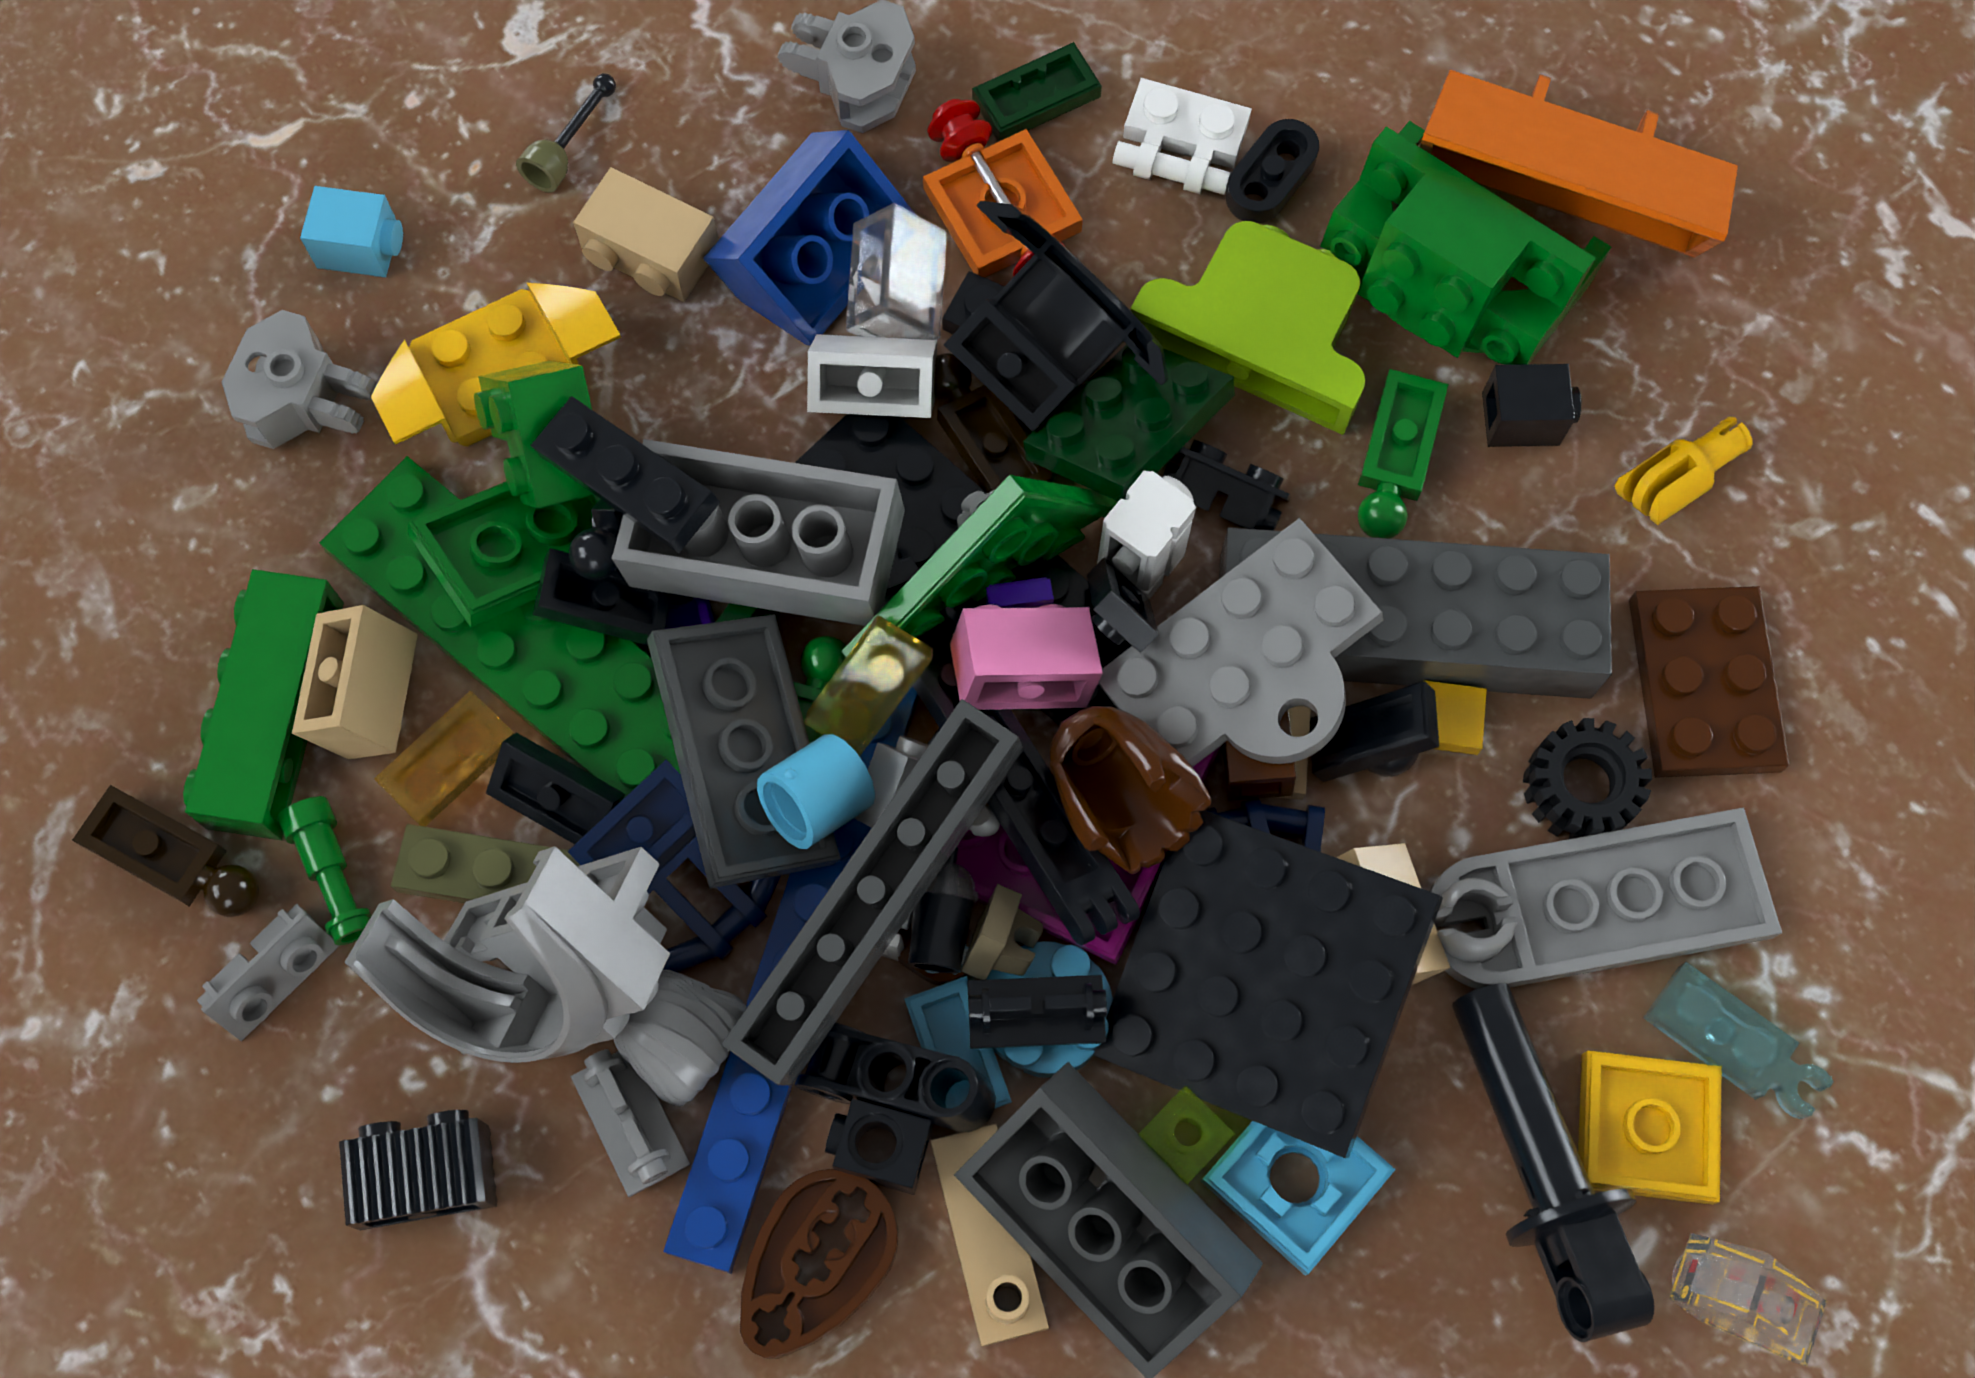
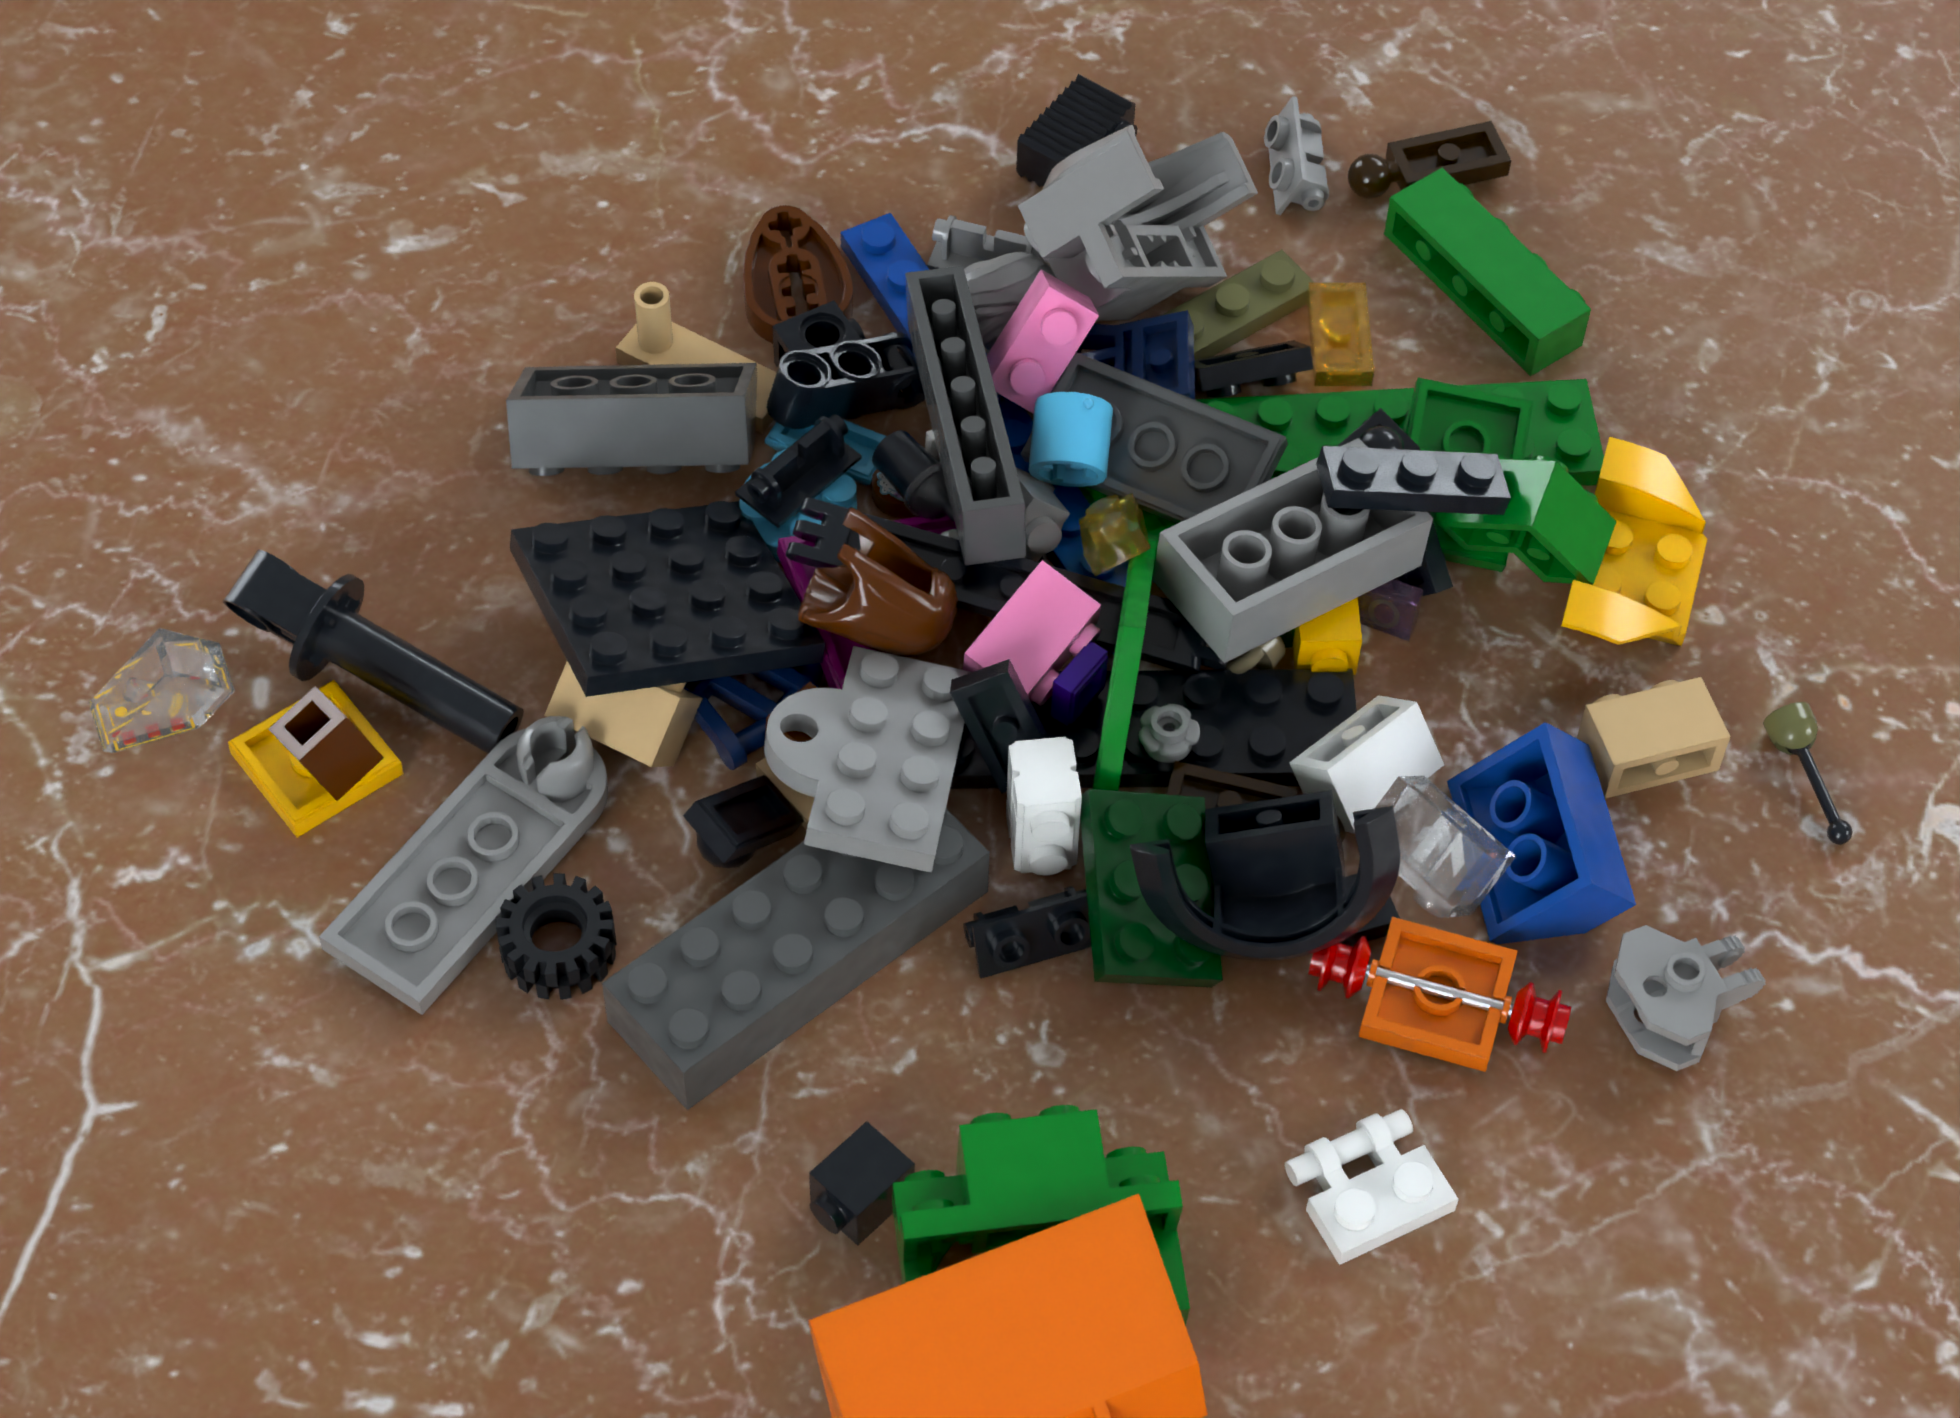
camera: 135 degrees right, 15 degrees down
(291, 383) = (1731, 438): light grey hinge -> none
(310, 827) = (1339, 230): green piece -> none
(351, 231) = (1845, 565): medium azure brick -> none
(355, 683) = (1443, 311): tan brick -> none
(726, 921) = (1040, 340): none -> bright pink brick
(996, 937) = (870, 486): dark tan tile -> none
(1037, 92) = (1522, 1111): dark green plate -> none
(1186, 1160) = (631, 489): clear neon green plate -> none
(1268, 319) = (1139, 1060): lime brick -> none
(1269, 174) = (1266, 1216): black plate -> none
(1302, 1229) = (520, 507): medium azure piece -> none
(1399, 450) = (927, 1062): green plate -> none
(1460, 717) = (691, 896): yellow tile -> none
(1670, 1080) = (326, 743): none -> reddish brown brick
(1682, 470) = (686, 1244): yellow arm -> none
(1708, 682) = (526, 1099): reddish brown plate -> none
(1734, 1036) = (296, 858): clear light blue plate -> none

